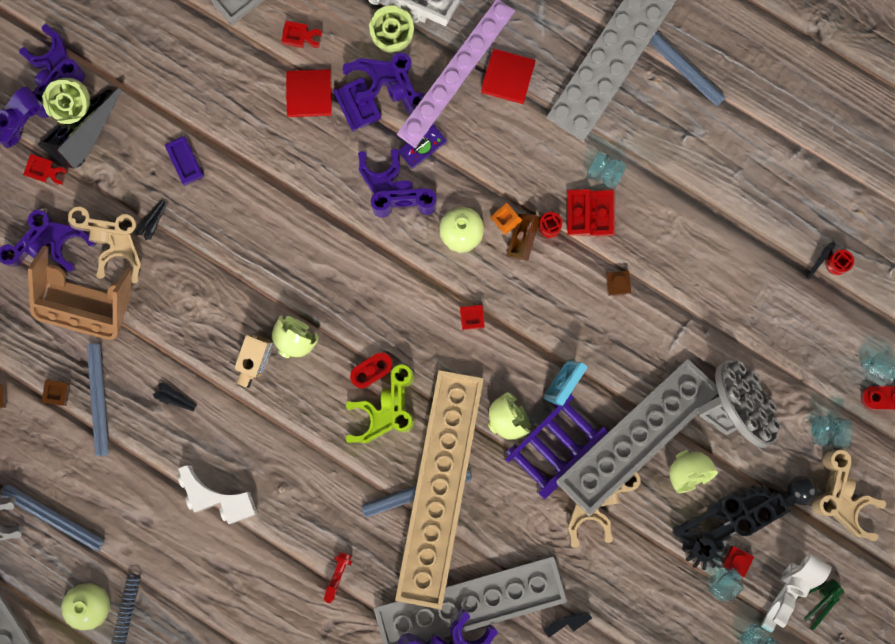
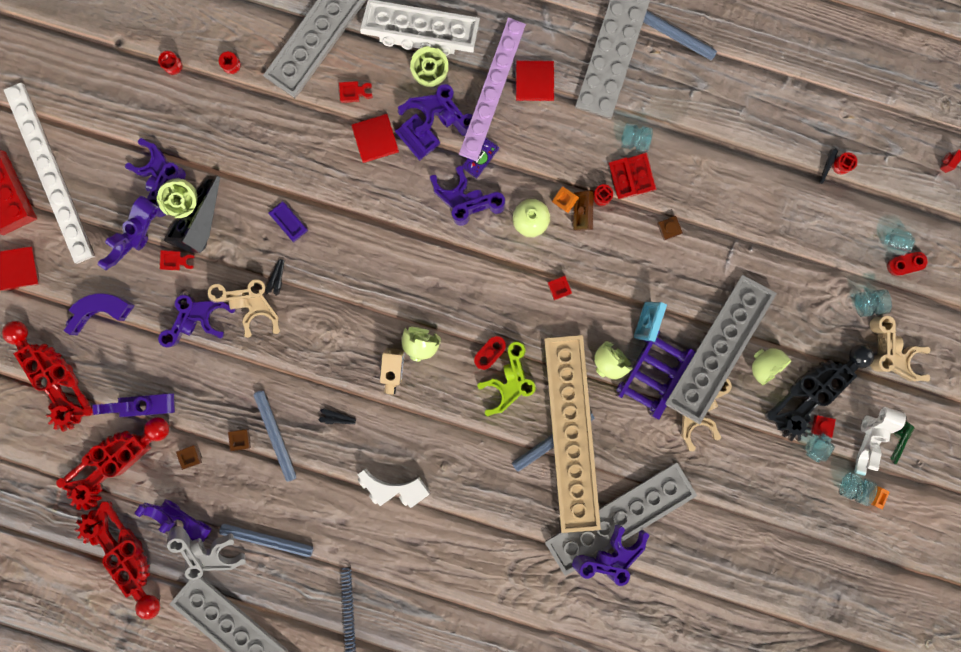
camera: 15 degrees left, 5 degrees up
(76, 306) = (234, 364): medium nougat windscreen -> none
(85, 606) = (314, 603): yellowish green cylinder -> none
(343, 560) = (507, 539): red hinge -> none
(574, 621) = (707, 508): black slope -> none
(741, 405) = (798, 302): light grey bracket -> none

